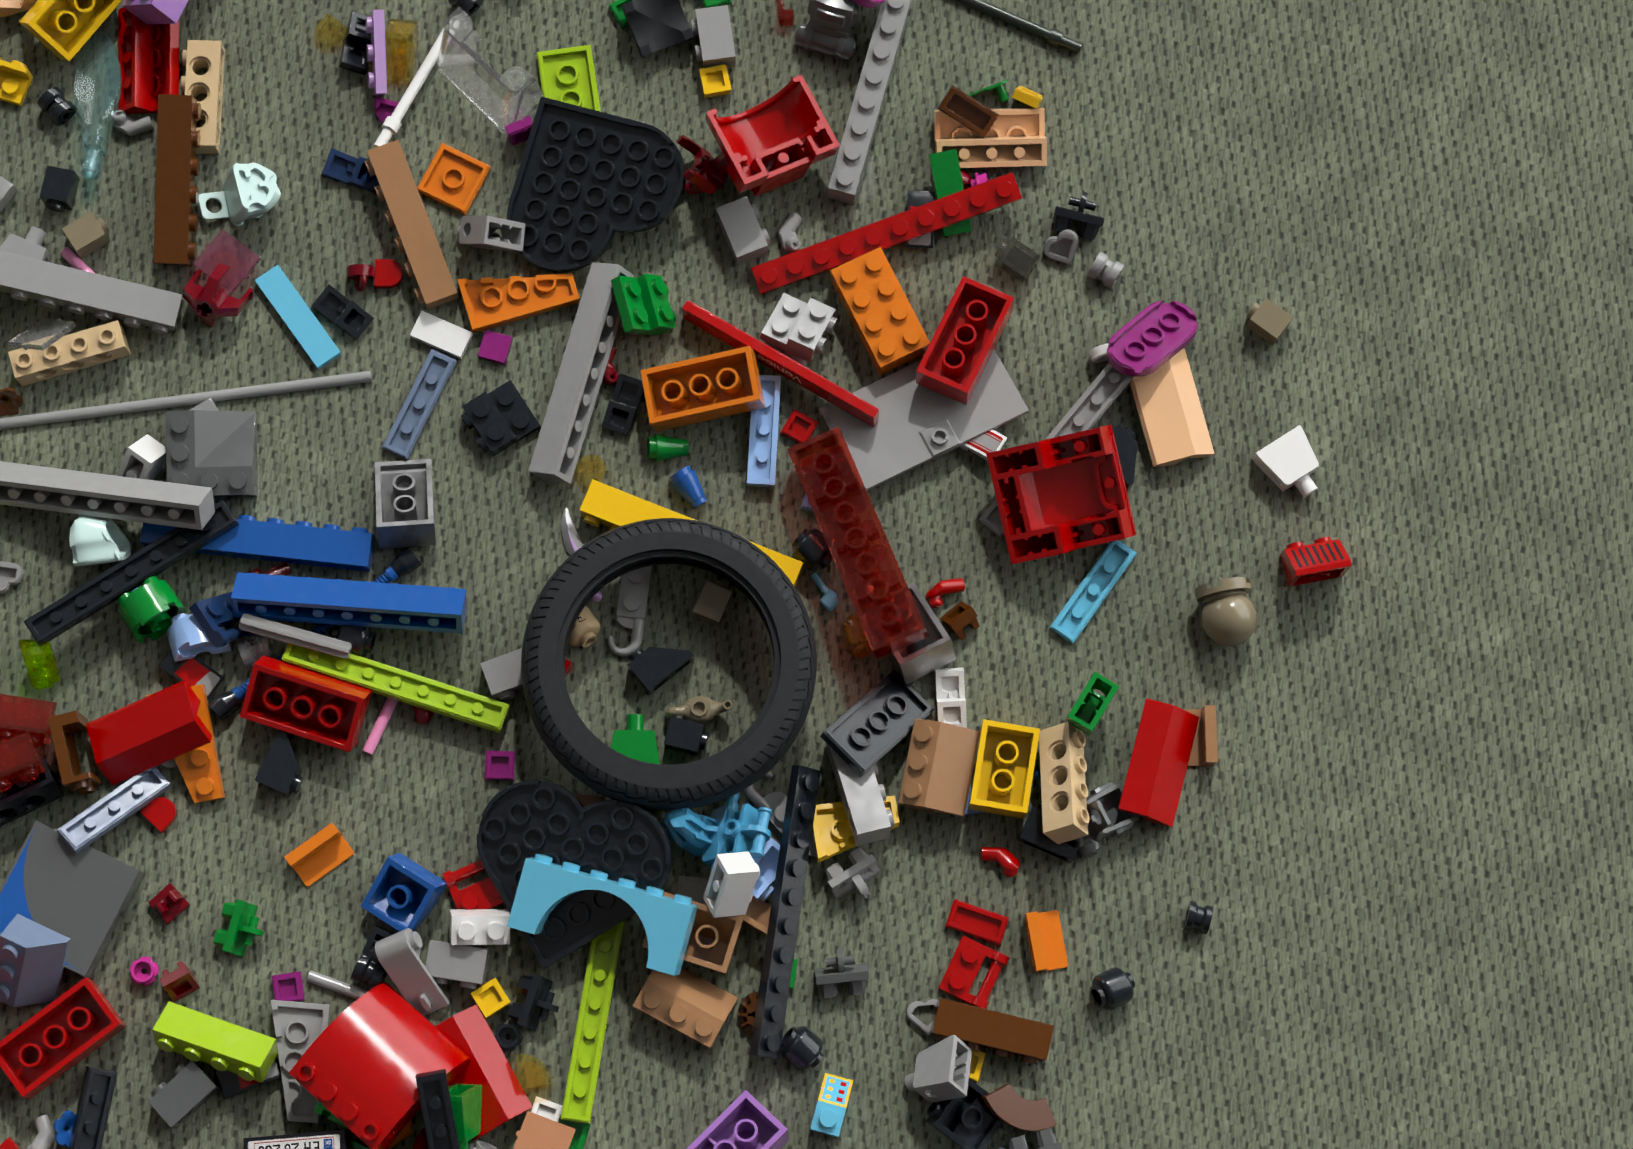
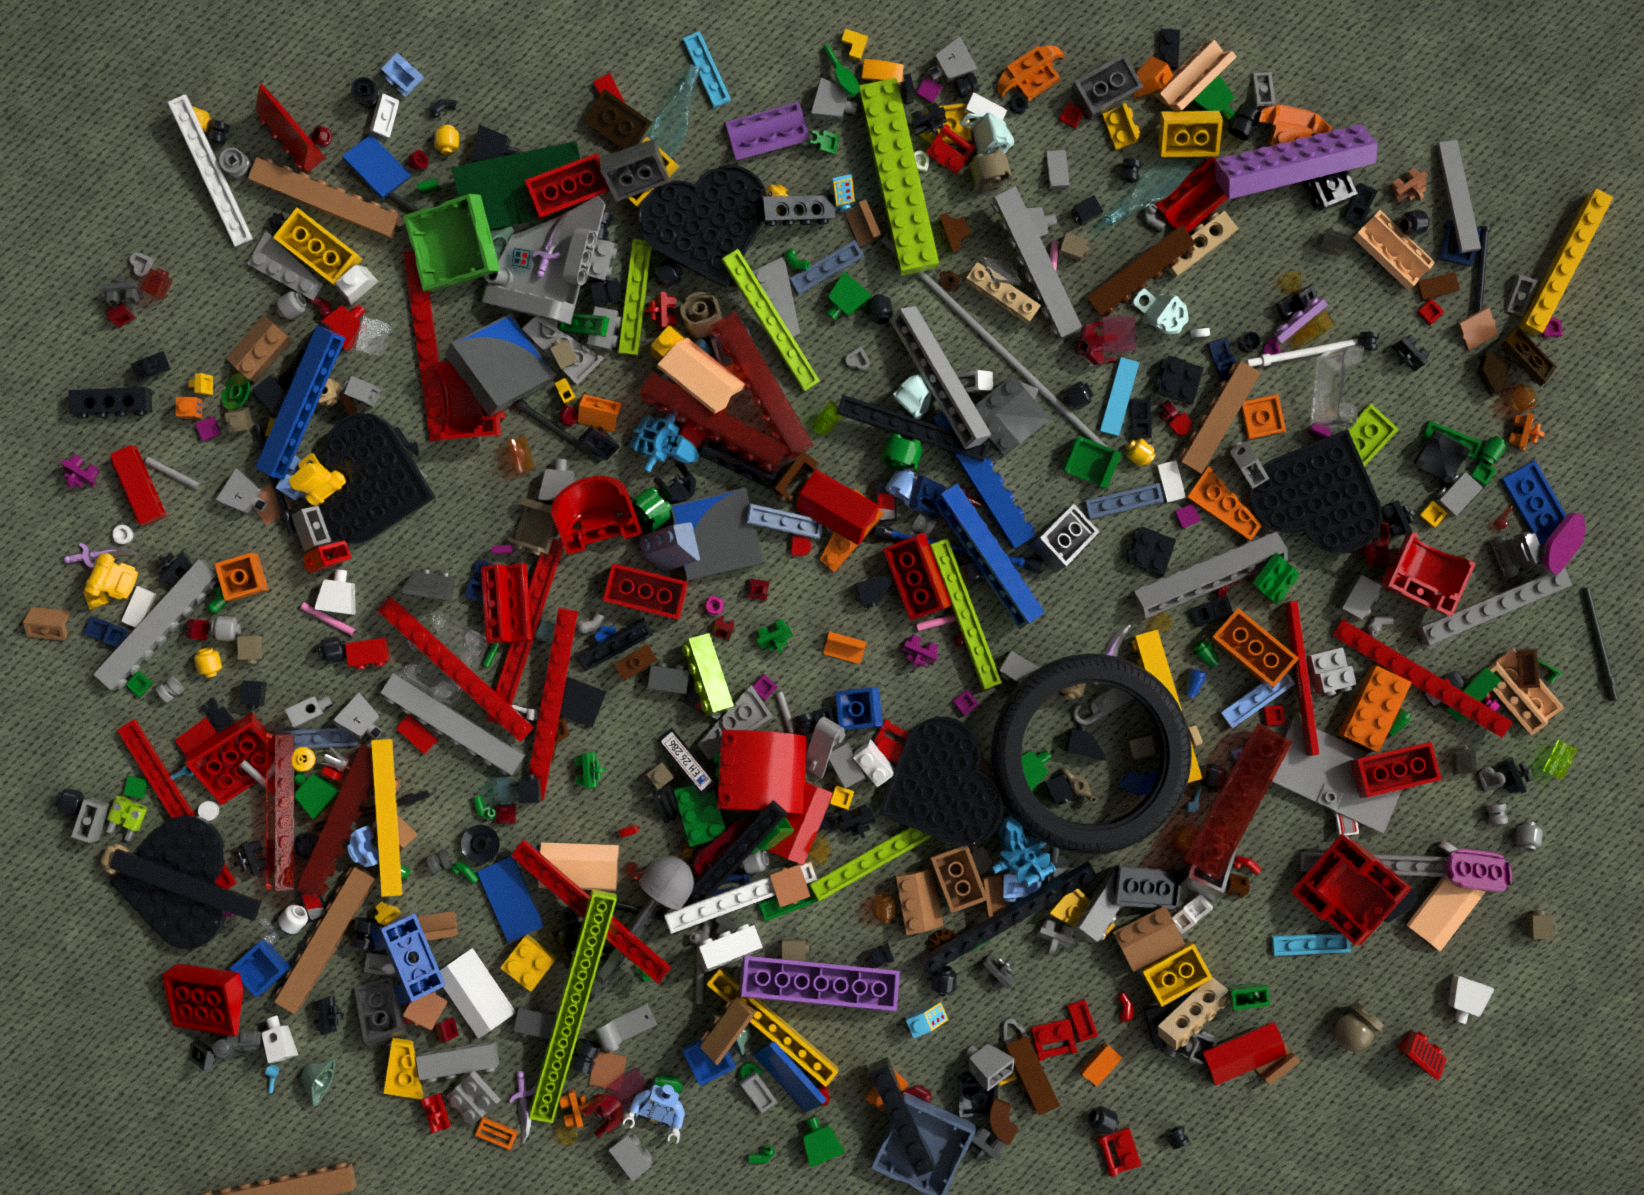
camera: 55 degrees right, 10 degrees up
(130, 1117) = (635, 662): none -> reddish brown brick
(256, 360) = (1078, 395): none -> black head
(295, 636) = (948, 542): light grey axle -> none
(301, 172) = (1200, 332): none -> white tile
(334, 237) = (1178, 379): none -> black plate
(343, 404) = (1091, 461): none -> green panel
(354, 123) = (1250, 338): none -> black wheel
(379, 342) = (1140, 452): none -> yellow head
(399, 773) = (918, 654): none -> magenta hips
(660, 1051) = (884, 908): none -> clear orange head
(665, 919) = (955, 861): medium azure arch -> none
(689, 115) = (1402, 517): none -> black hips
(714, 1098) = (882, 955): none -> black wheel
(731, 884) = (1000, 881): white brick -> none
(749, 532) = (1194, 735): none -> tan tile
(751, 642) = (1137, 782): none -> blue tile
(917, 295) = (1400, 721): none -> green cone
(1027, 96) = (1563, 694): yellow tile -> none
(1099, 156) = (1560, 760): none -> clear neon green hips
(1159, 256) = (1528, 836): none -> light grey head
(1166, 991) = (1125, 1150): none -> red plate

